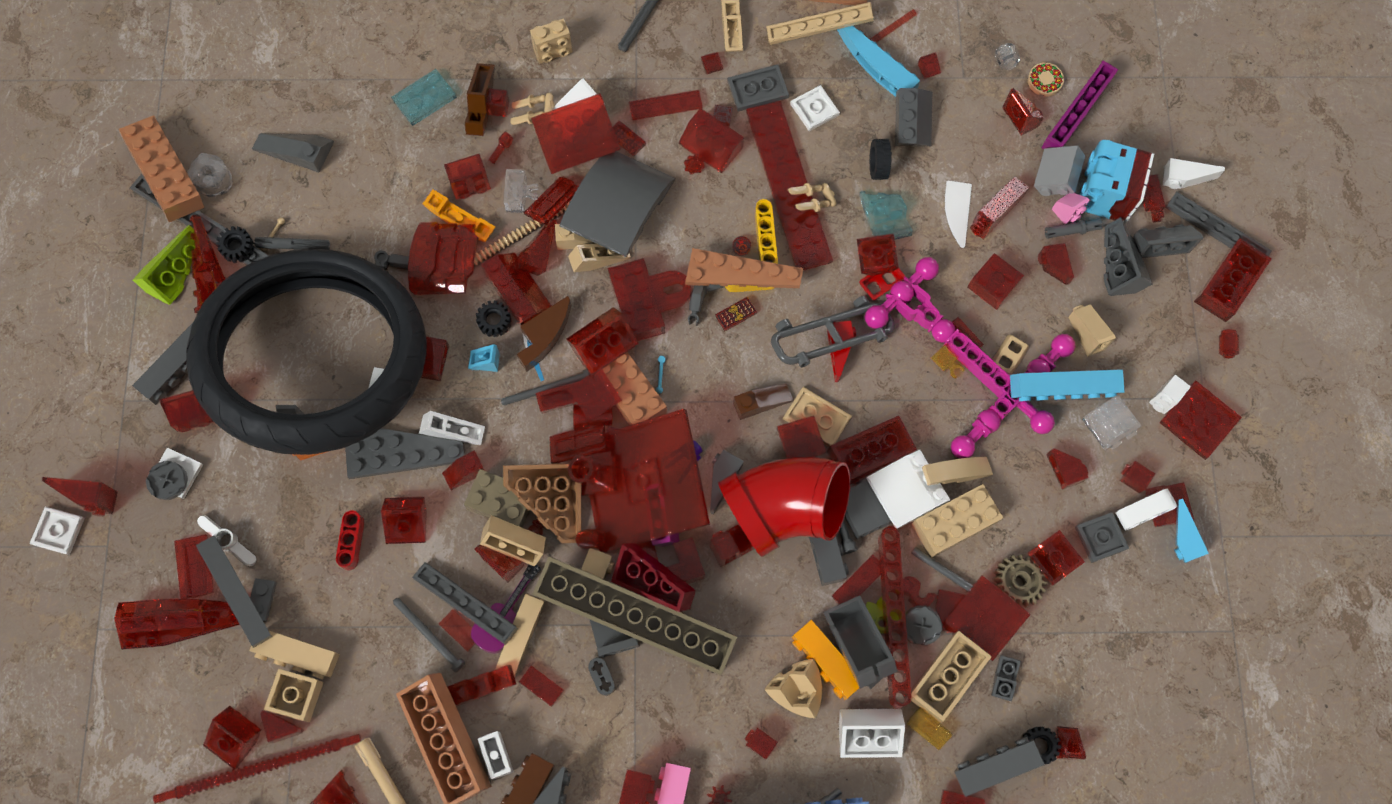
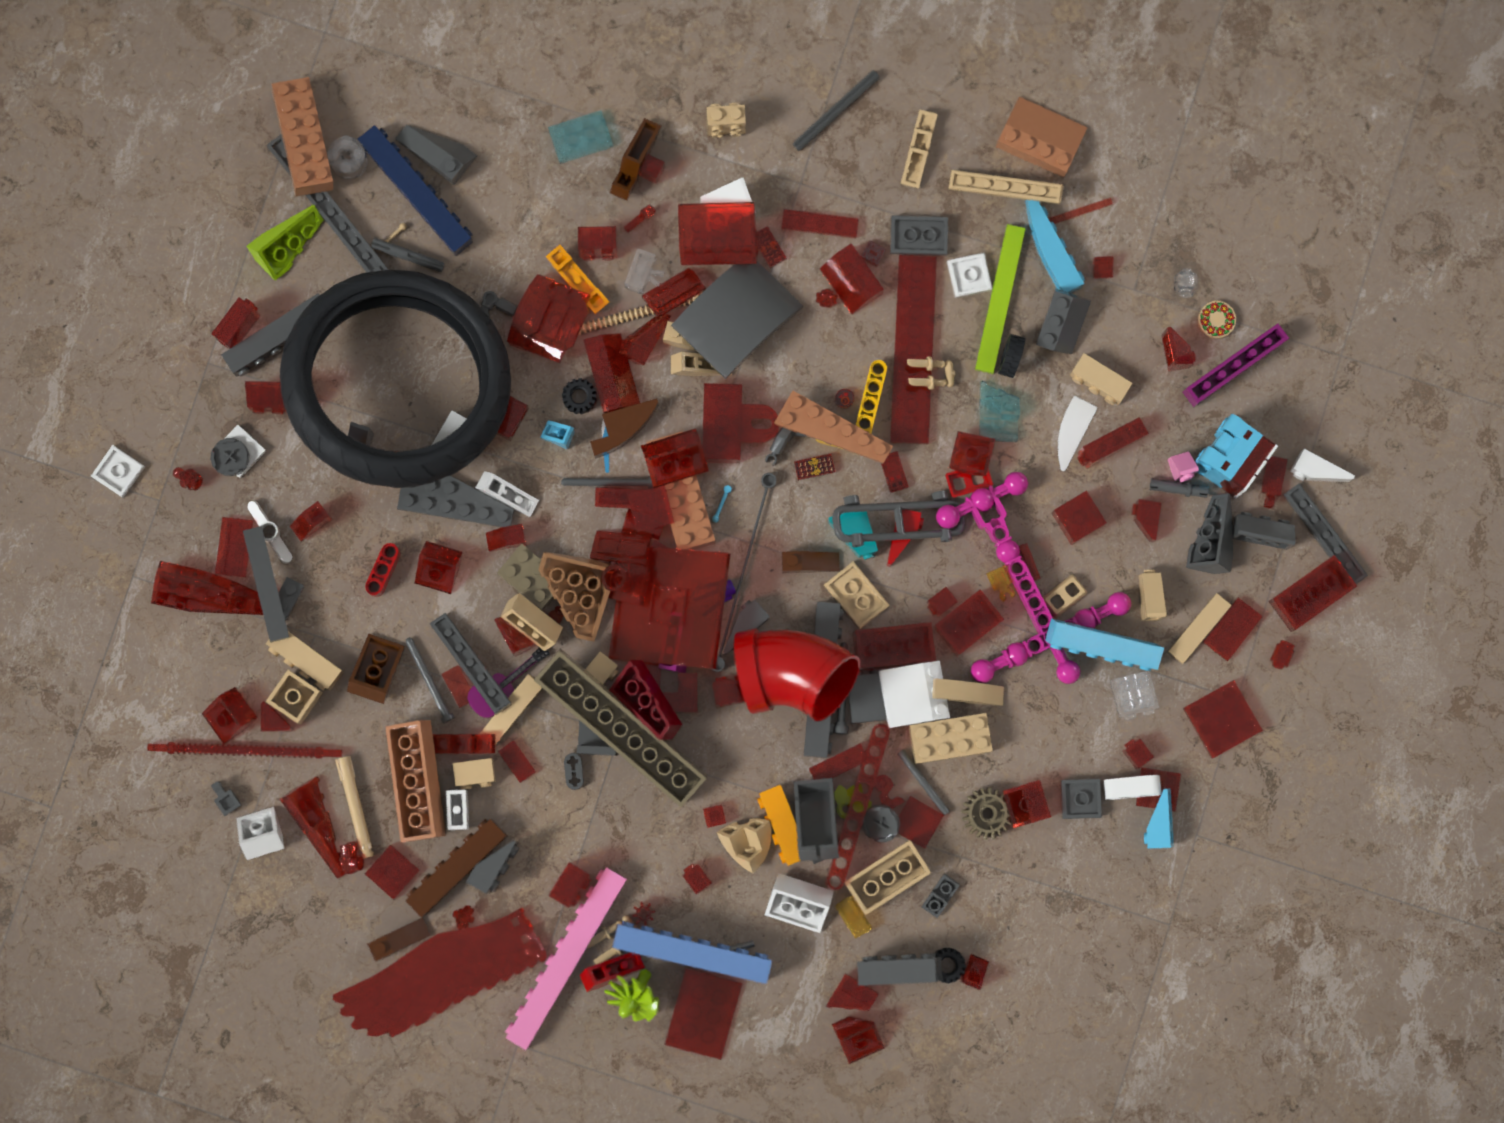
camera: 15 degrees right, 10 degrees up
(92, 496) = (159, 452): clear red slope -> none
(130, 514) = (188, 478): none -> clear red piece
(139, 351) = (236, 323): none -> clear red brick
(205, 264) = (318, 256): clear red wedge -> none
(228, 237) = (353, 230): black tyre -> none
(263, 515) = (310, 521): none -> clear red slope
(283, 185) = (412, 187): none -> dark blue brick
(370, 640) = (375, 668): none -> reddish brown slope
(501, 711) = (474, 773): none -> tan brick
(531, 101) = (685, 179): tan piece -> none
(590, 538) = (603, 642): clear red brick -> none
(698, 340) = (768, 481): none -> dark grey piece
(711, 63) = (882, 191): clear red tile -> none
(756, 674) = (714, 816): none -> clear red plate
(791, 347) = (857, 523): none -> teal slope
(801, 438) = (830, 614): clear red plate -> none
(811, 296) = (894, 473): none -> clear red tile
(849, 120) = (1000, 299): none -> lime tile
(899, 397) = (941, 602): none -> clear red brick
(932, 406) = (968, 623): none -> clear red brick
(966, 157) = (1100, 379): none -> tan brick
(987, 617) = (942, 836): clear red plate -> none
(1059, 170) = (1186, 426): light grey brick -> none
(1067, 468) = (1075, 725): clear red slope -> none
(1143, 345) = (1199, 628): none -> tan tile
(1169, 394) = (1199, 686): white brick -> none
(1173, 336) = (1232, 629): none -> clear red piece

